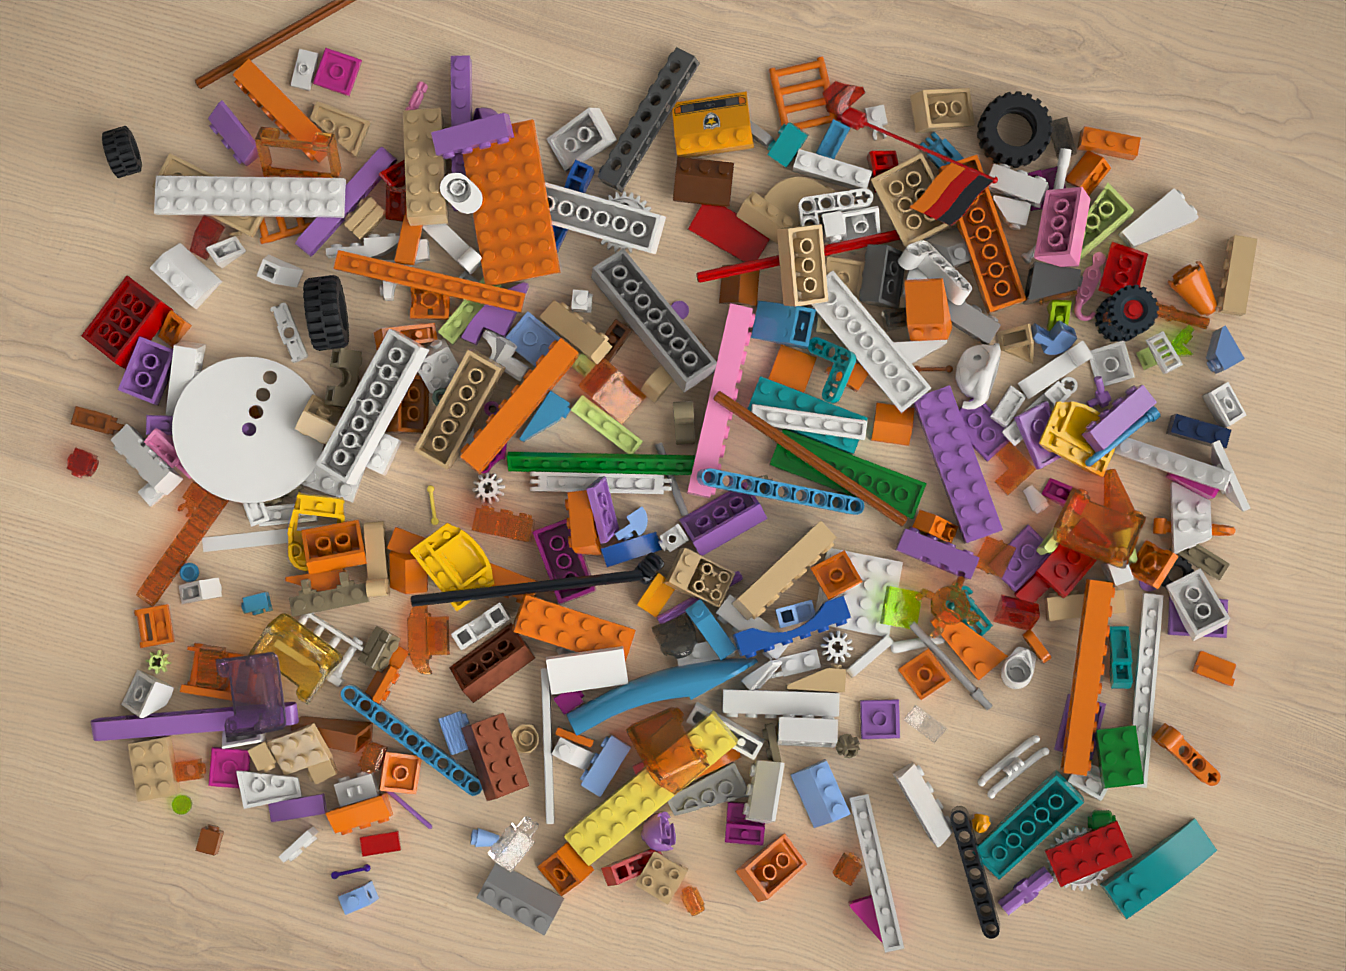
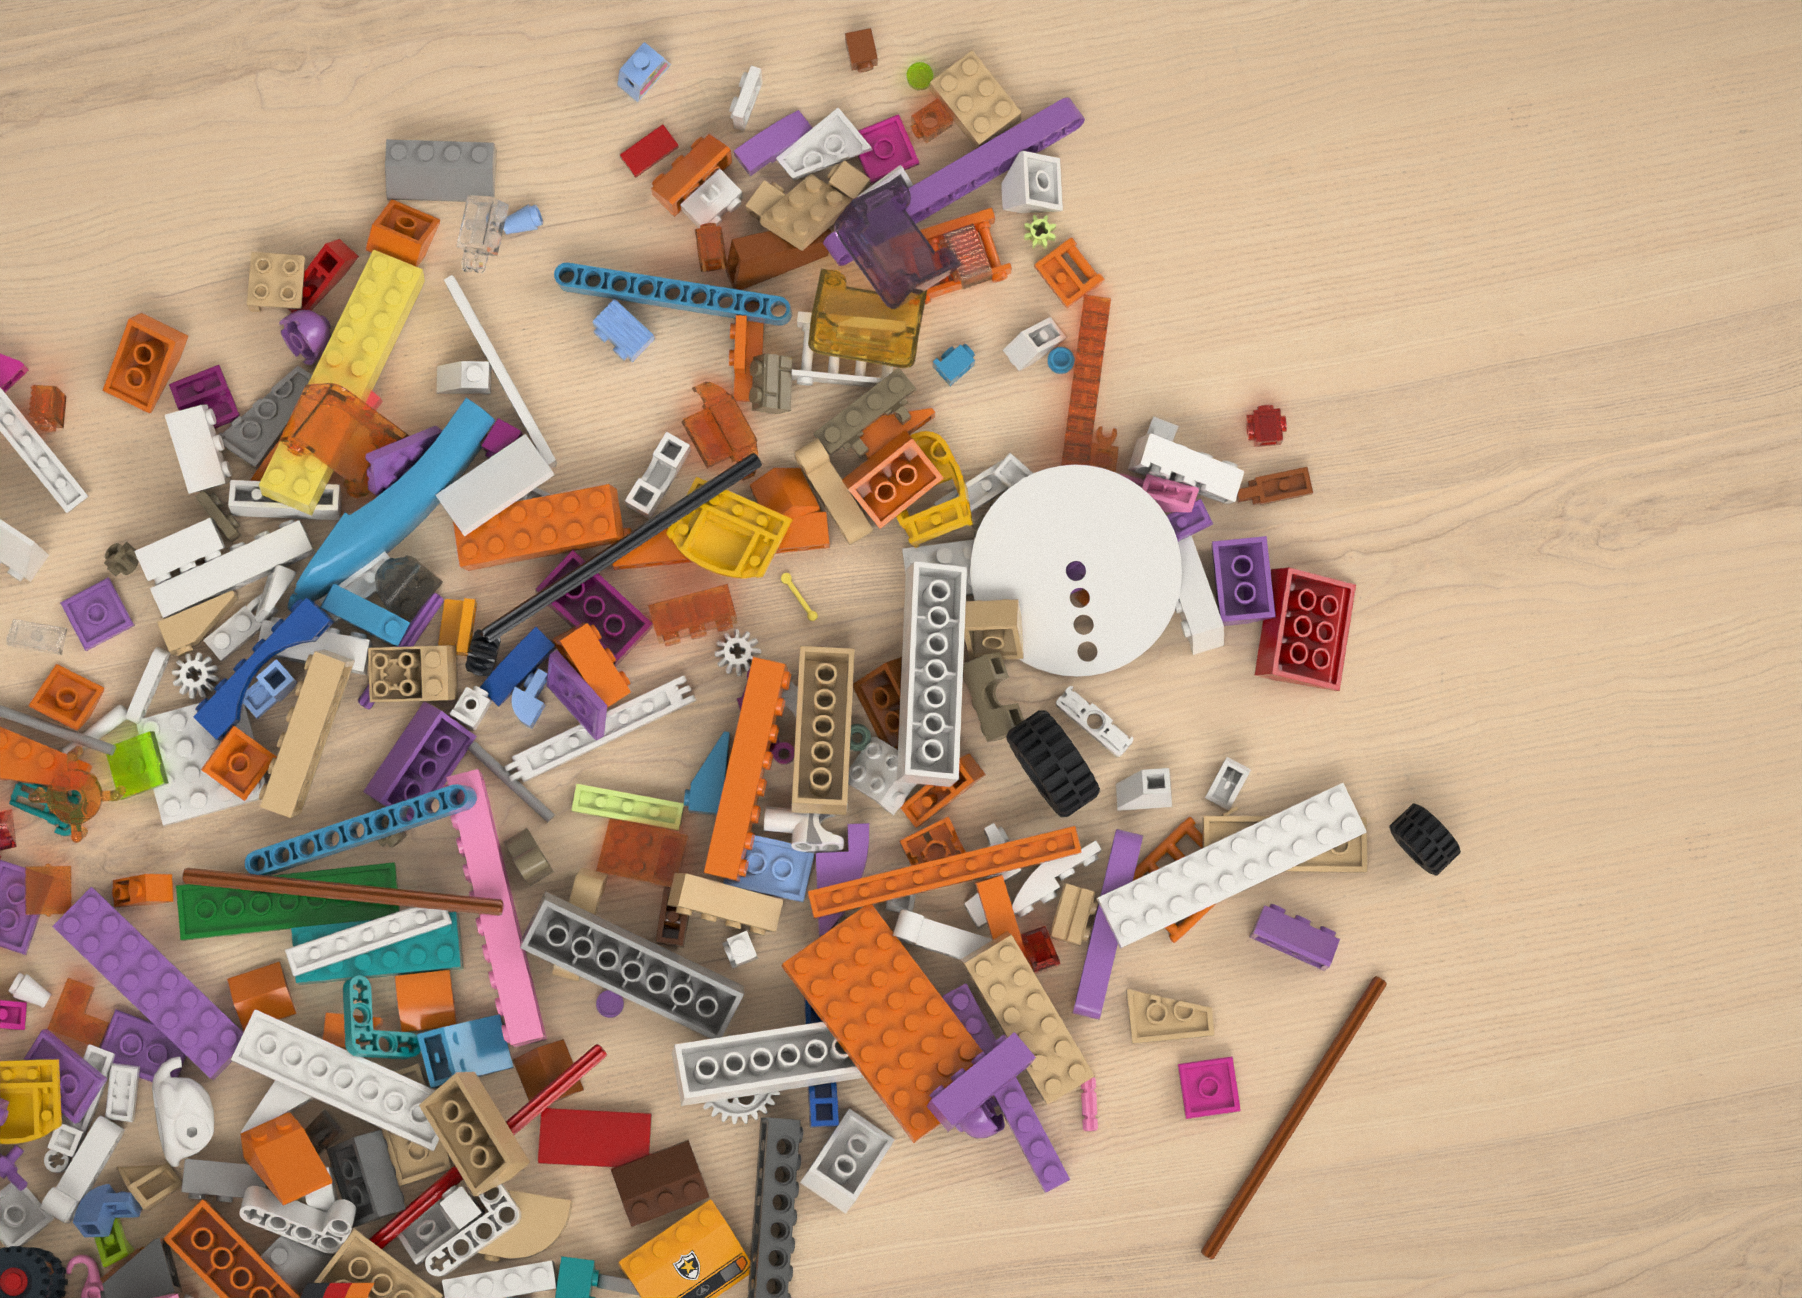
camera: 150 degrees right, 5 degrees down
(174, 328) = (1241, 651): orange slope -> none
(186, 275) = (1262, 727): white slope -> none
(205, 235) = (1263, 788): clear red slope -> none
(248, 539) = (997, 446): white sticker -> none
(277, 106) = (1248, 998): orange brick -> none
(304, 70) = (1253, 1069): white plate -> none
(321, 142) = (1170, 975): clear orange hinge -> none
(335, 874) = (685, 87): dark purple hinge -> none
(384, 454) = (891, 627): white brick -> none
(394, 175) = (1062, 990): red slope -> none
(400, 772) = (668, 247): orange slope -> none
(410, 809) = (638, 211): medium lavender axle -> none
(460, 319) = (883, 848): yellowish green plate -> none
(461, 193) = (959, 1001): white piece -> none
(491, 663) = (622, 437): copper slope -> none
(495, 757) = (558, 324): copper brick -> none
(525, 738) = (533, 365): tan hat -> none
(570, 735) = (481, 398): orange tile -> none
(583, 365) = (693, 866): yellowish green tile -> none
(600, 463) = (610, 755): green plate -> none
(605, 765) = (416, 384): light blue brick -> none
(639, 717) = (395, 459): none -> medium lavender wing
(692, 900) = (224, 274): clear orange brick -> none
(764, 216) = (555, 1178): tan brick -> none
(820, 794) = (127, 483): light blue slope -> none
(937, 554) = (122, 856): medium lavender wedge -> none
(949, 368) = (264, 1083): dark orange hinge -> none

